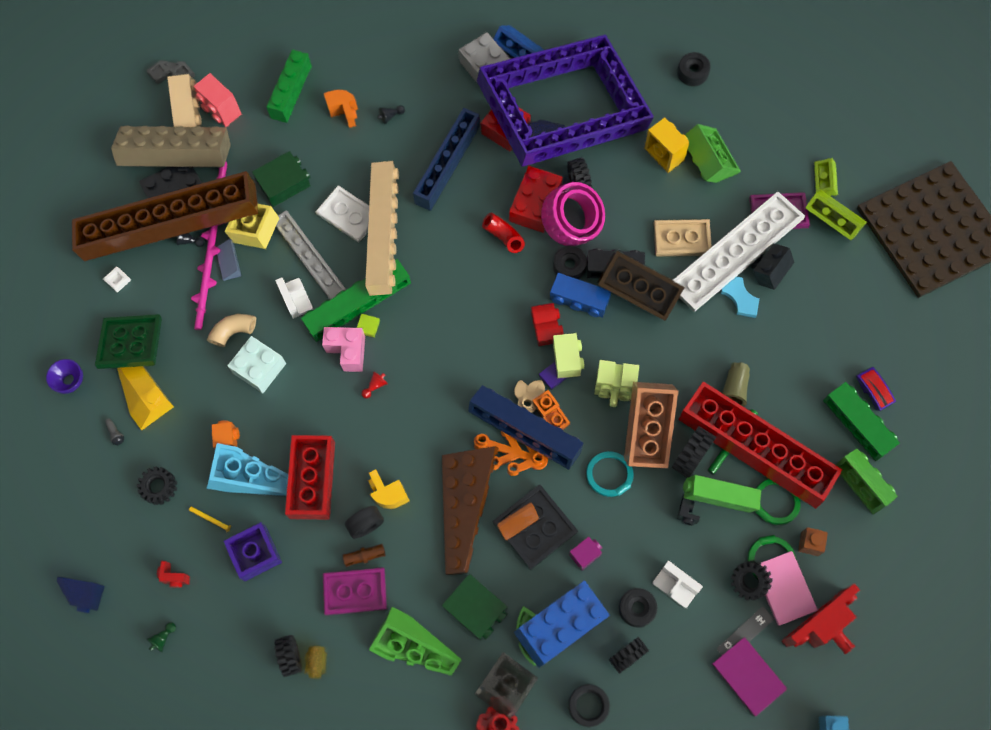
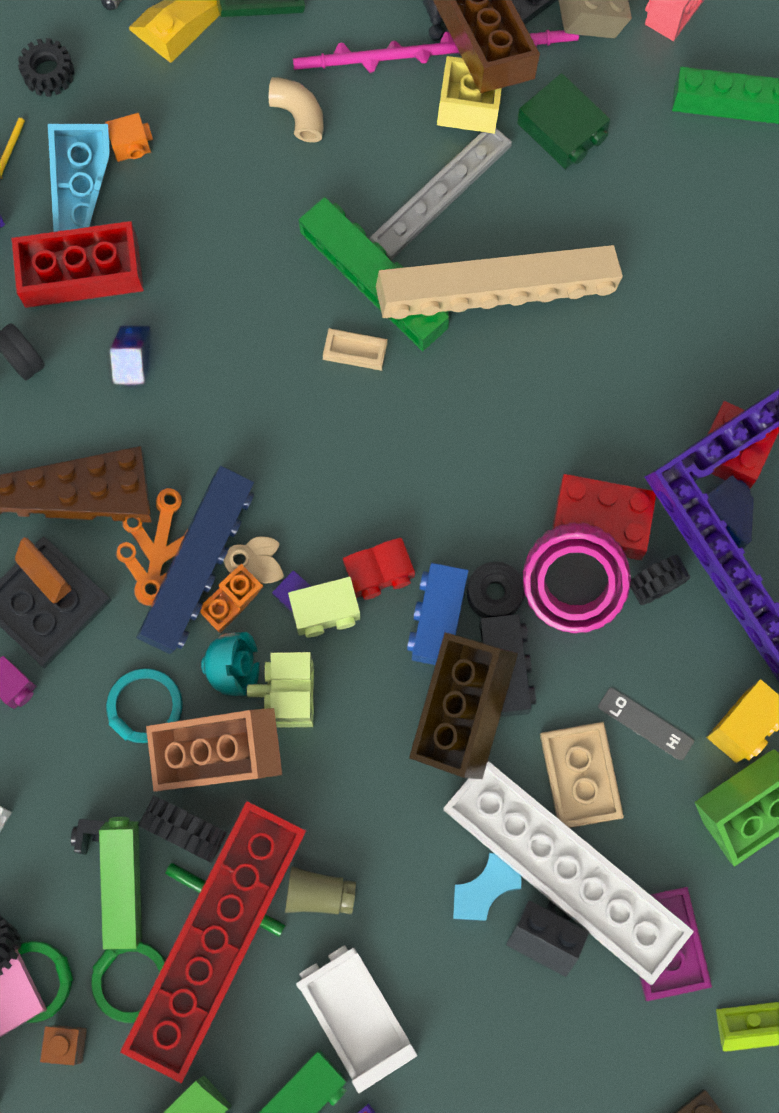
camera: 80 degrees right, 5 degrees up
(228, 260) = (412, 80): sand blue slope -> none
(257, 364) = (244, 154): light aqua brick -> none
(294, 297) = (365, 183): white panel -> none
(340, 103) = (720, 181): orange brick -> none
(346, 213) = (526, 225): white tile -> none
(349, 343) = (291, 281): bright pink brick -> none
(368, 324) = (337, 300): lime tile -> none
(376, 382) = (245, 330): red piece -> none
(379, 452) = (130, 355): none -> clear blue slope
(387, 114) = (718, 257): black piece -> none
(387, 496) = (66, 374): yellow brick -> none
(402, 320) = (355, 349): none -> tan tile
(446, 159) = (648, 361): dark blue brick -> none
(504, 232) = (532, 478): red cylinder -> none
(594, 416) = (230, 663): none -> teal cylinder
(656, 201) = (646, 724): none -> dark grey sticker
(809, 375) = (356, 1018): none -> white panel
(835, 214) = (671, 1045): lime brick -> none

